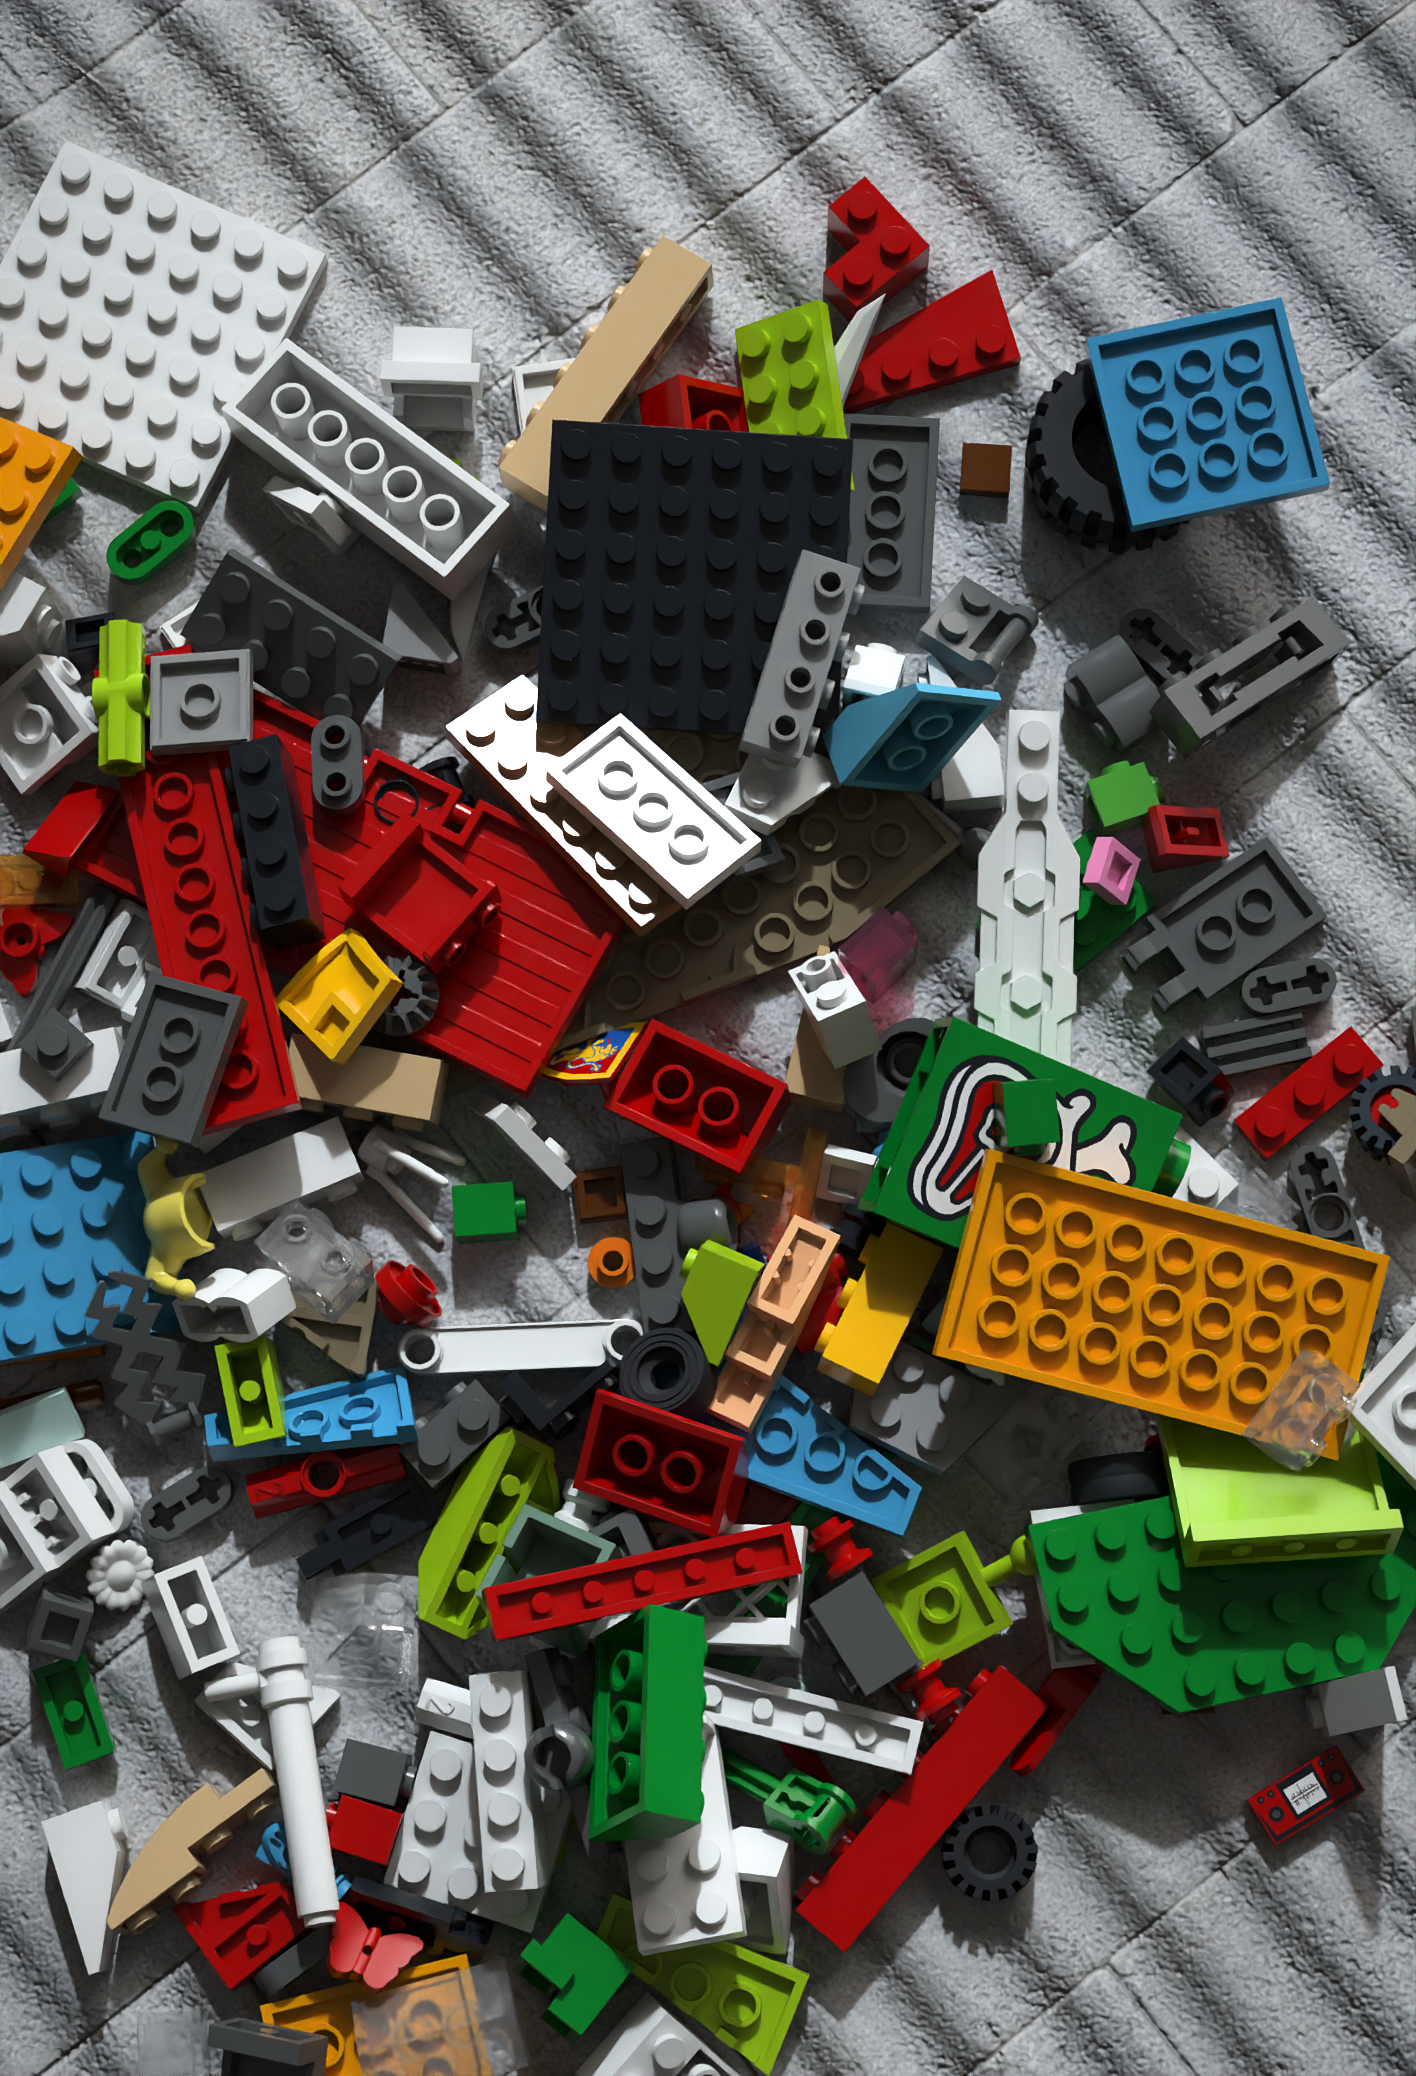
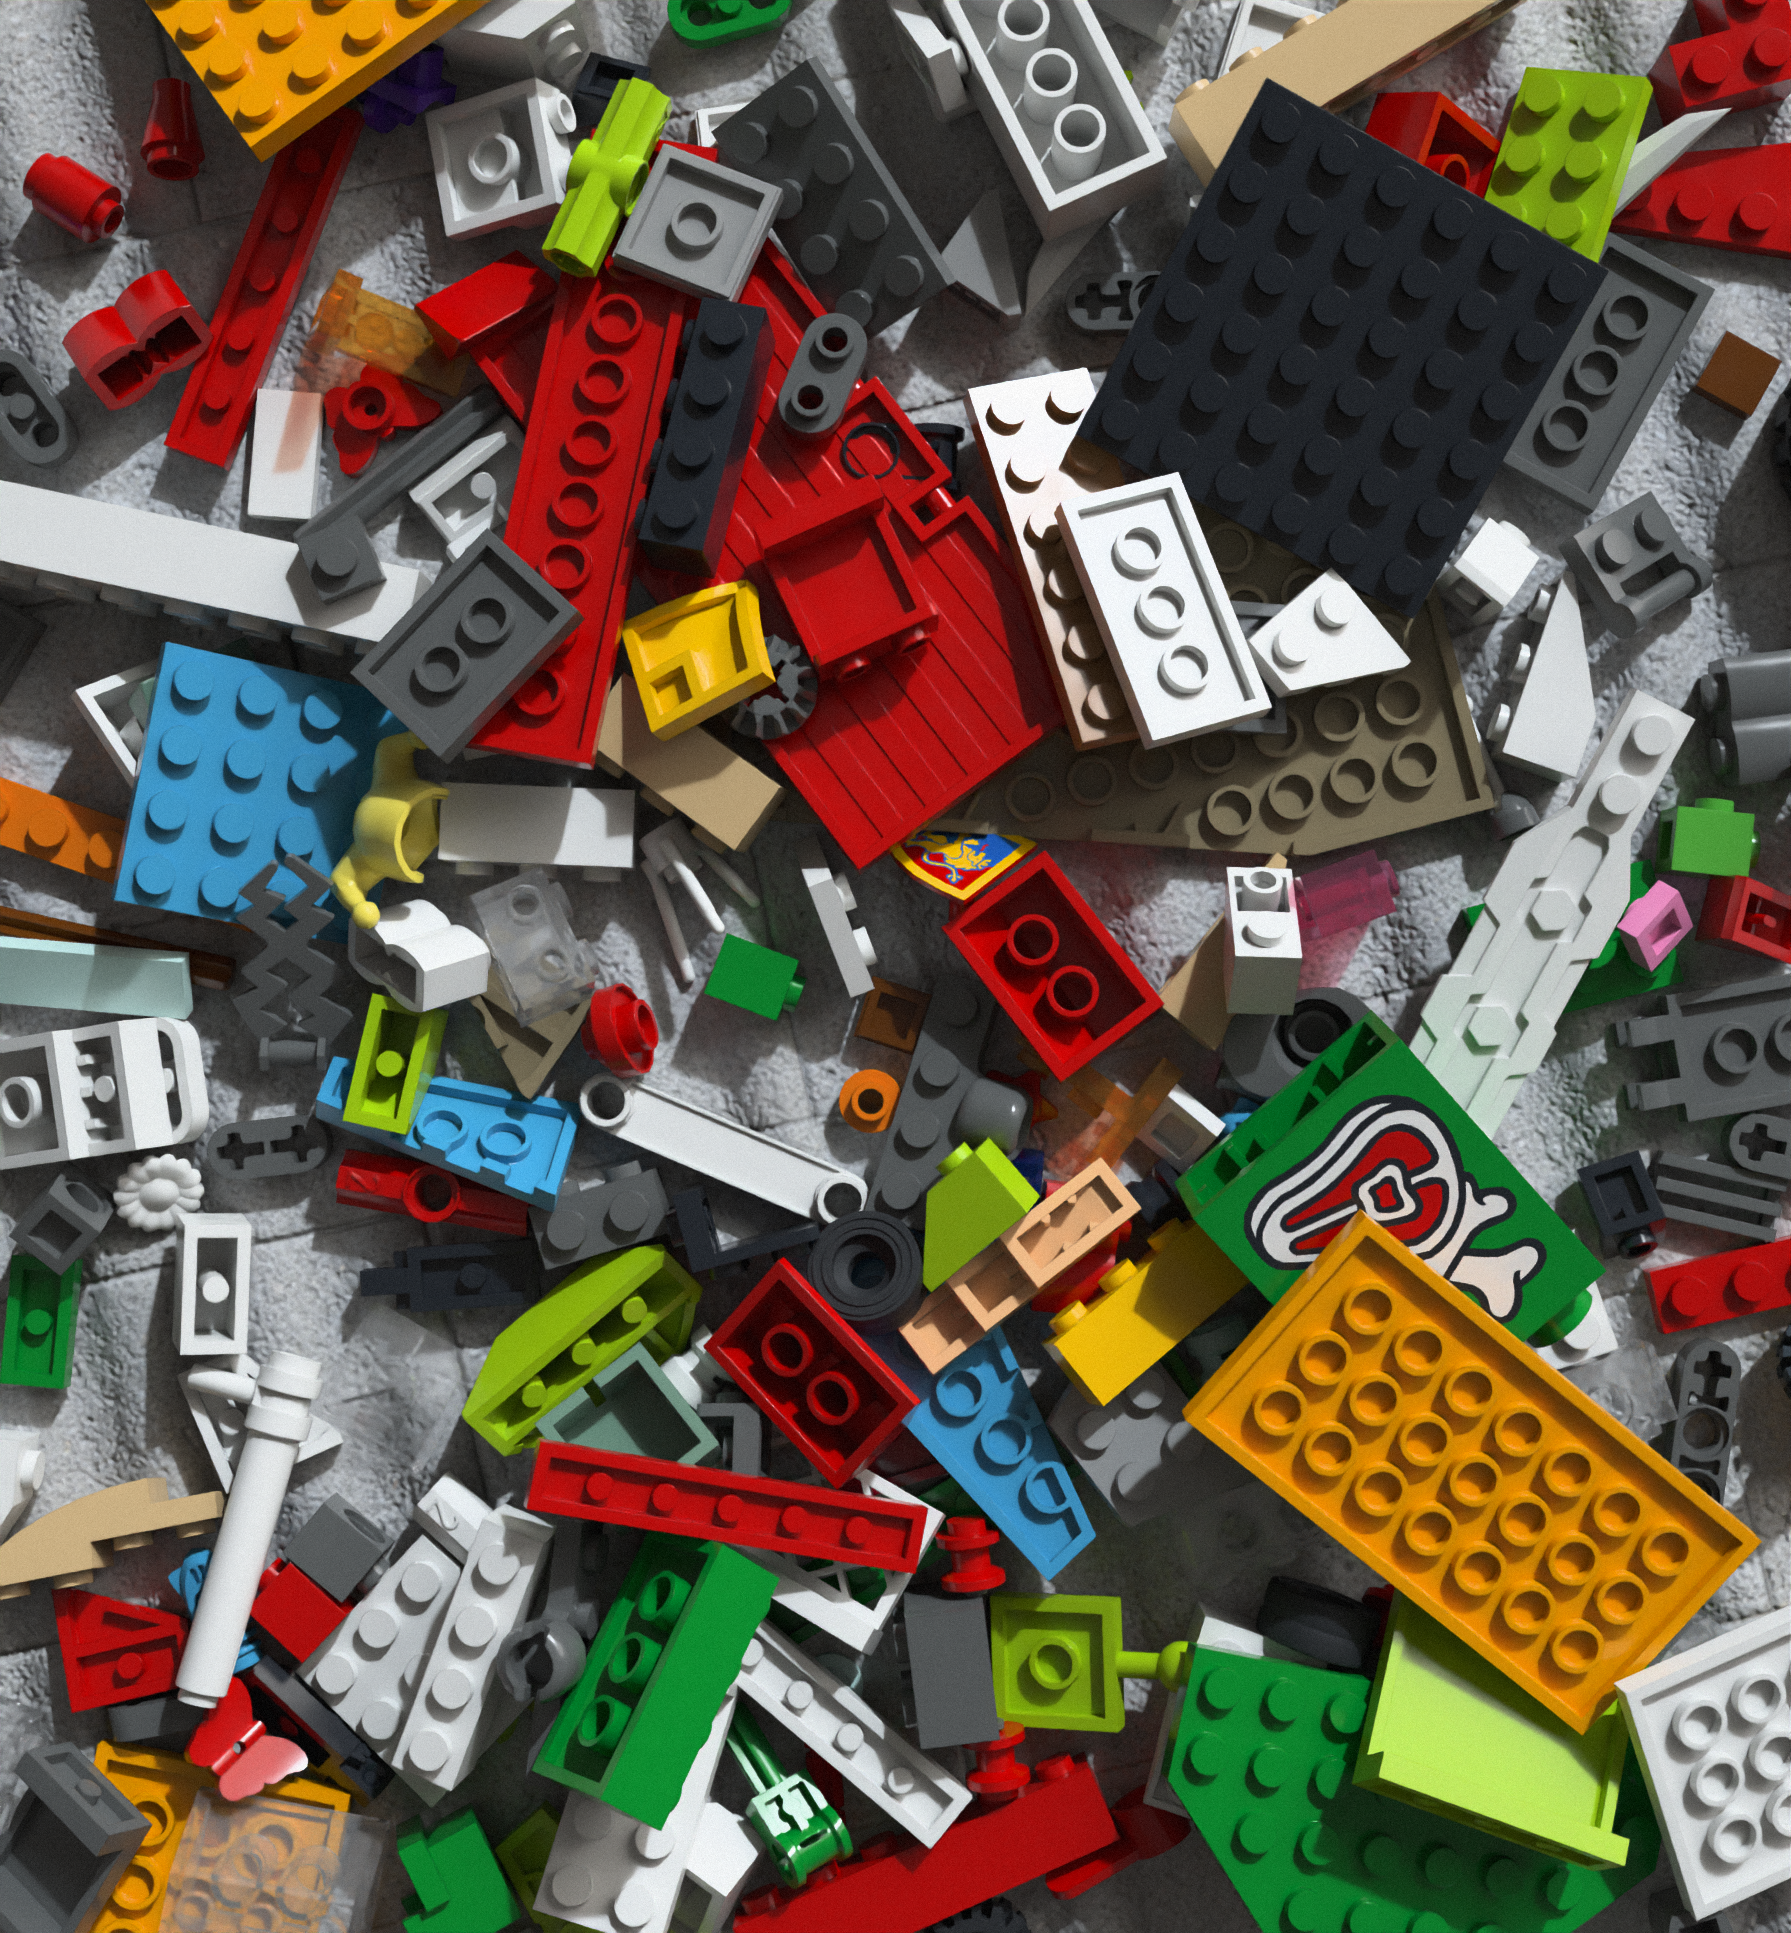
camera: 20 degrees right, 10 degrees up
(800, 659) = (1421, 509): light grey brick -> none
(905, 735) = (1497, 657): medium azure slope -> none
(1026, 1115) = (1429, 1195): green brick -> none
(1302, 1411) = (1574, 1675): clear brick -> none

